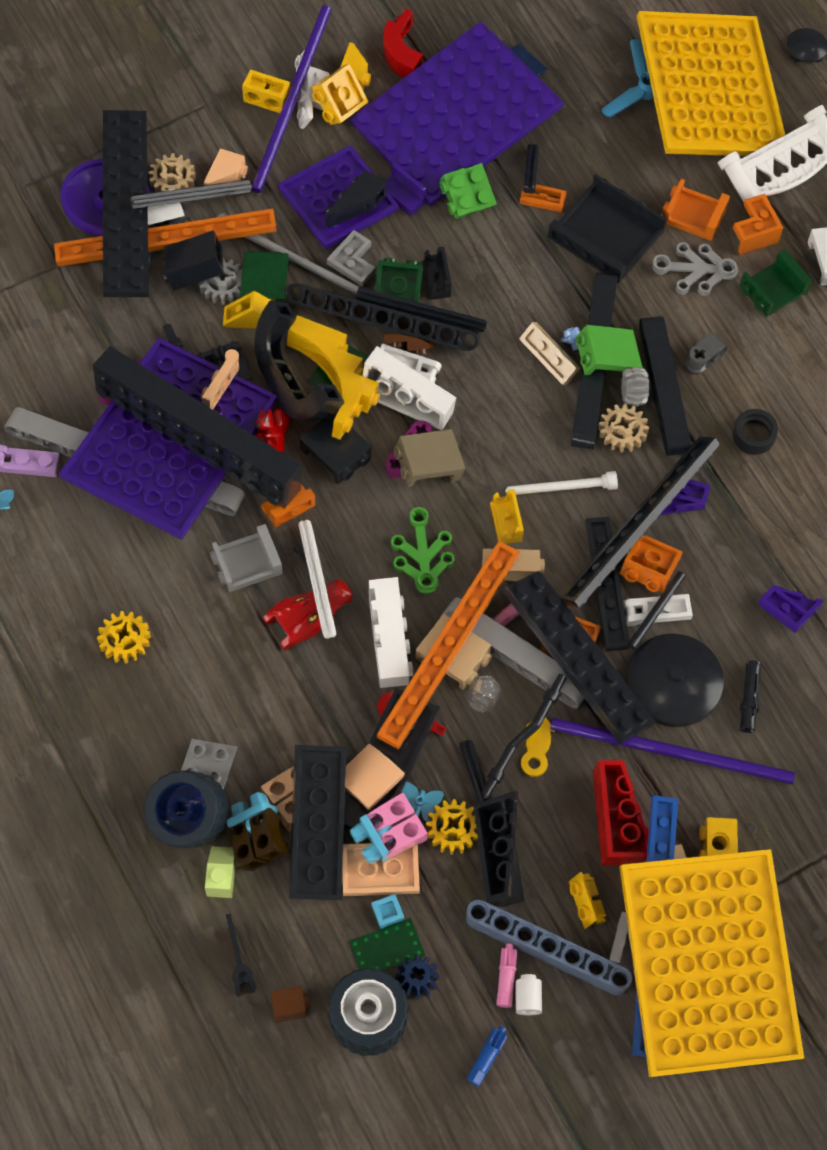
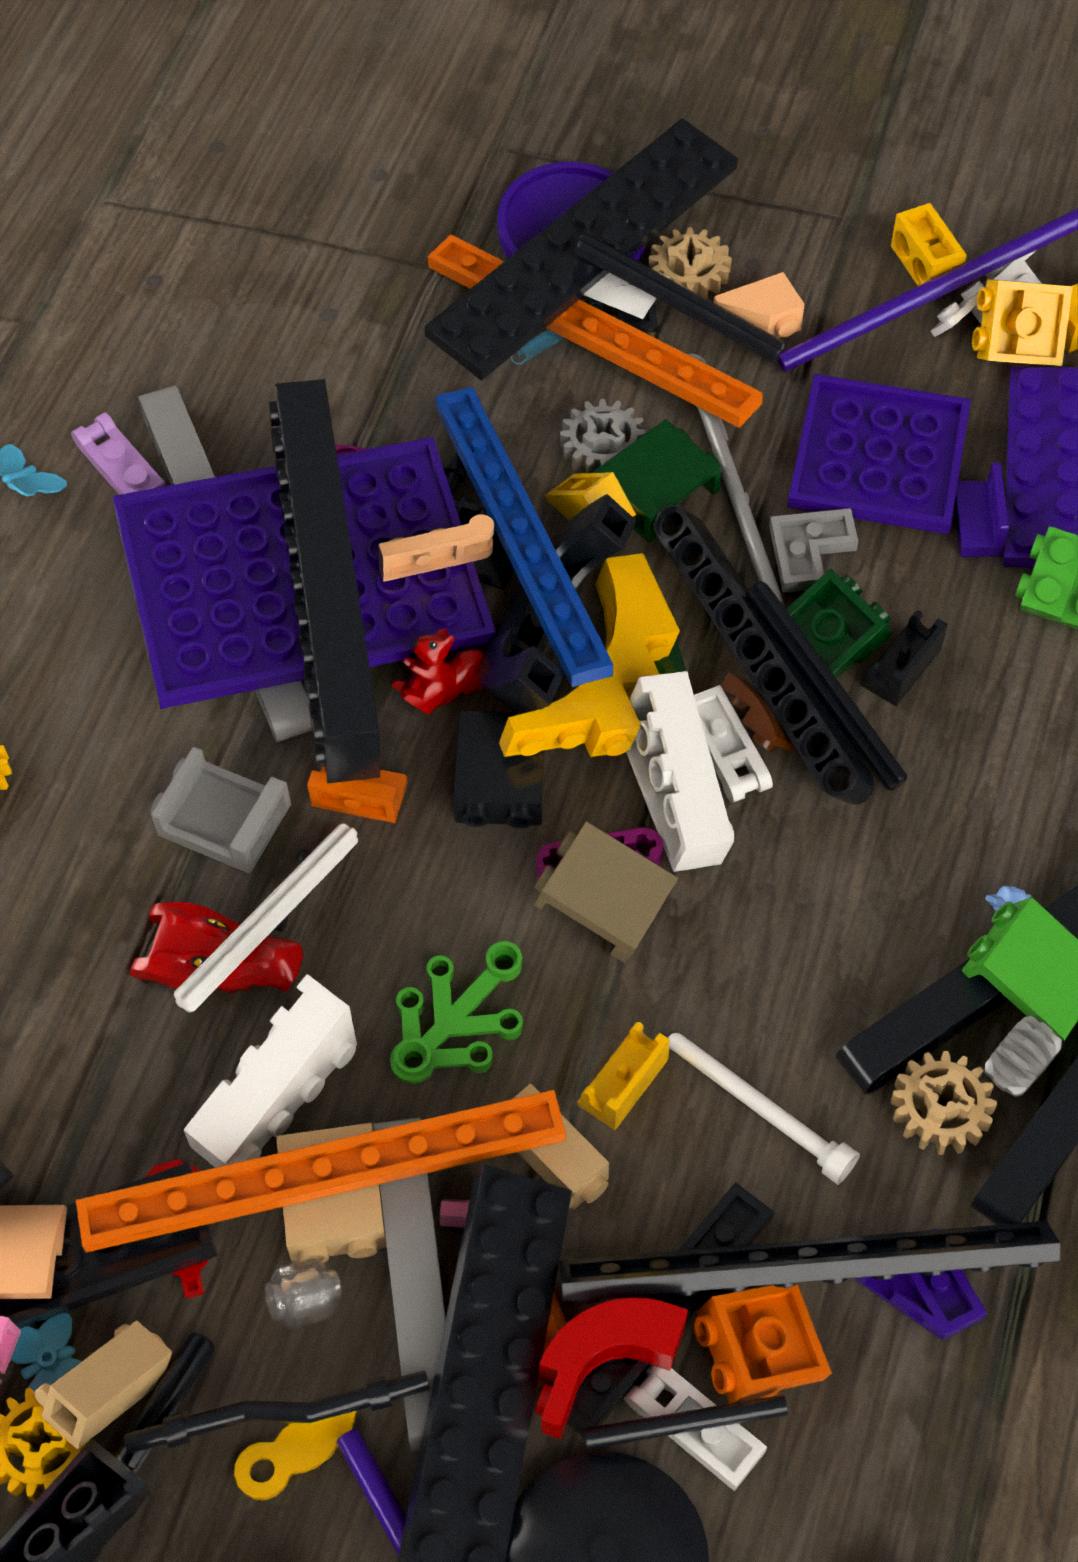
camera: 50 degrees right, 5 degrees down
(193, 260) = (587, 379): black brick -> none
(247, 345) = (524, 539): none -> blue plate
(359, 199) = (895, 470): black slope -> none
(456, 783) = (105, 1384): none -> tan brick
(549, 353) = (948, 899): tan plate -> none
(609, 596) = (606, 1332): none -> red arch

